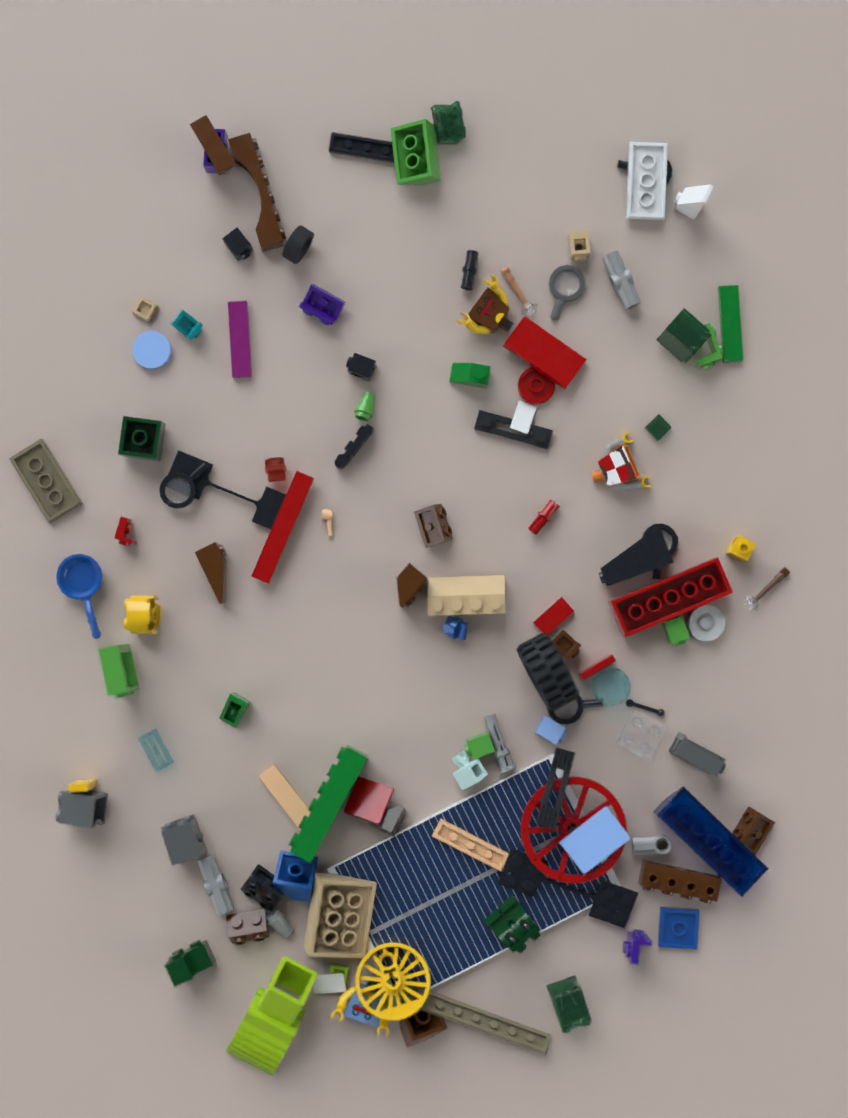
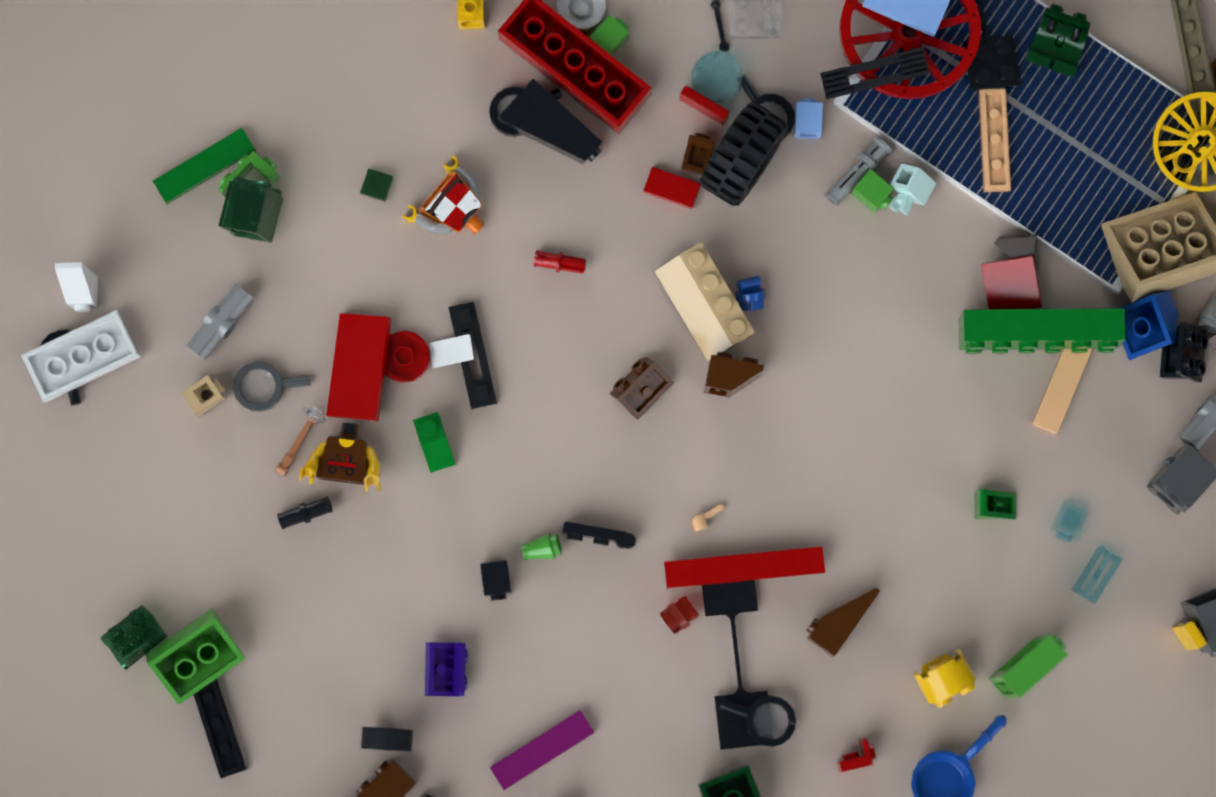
camera: 120 degrees left, 5 degrees down
(198, 751) = (1069, 522): none -> clear light blue bracket

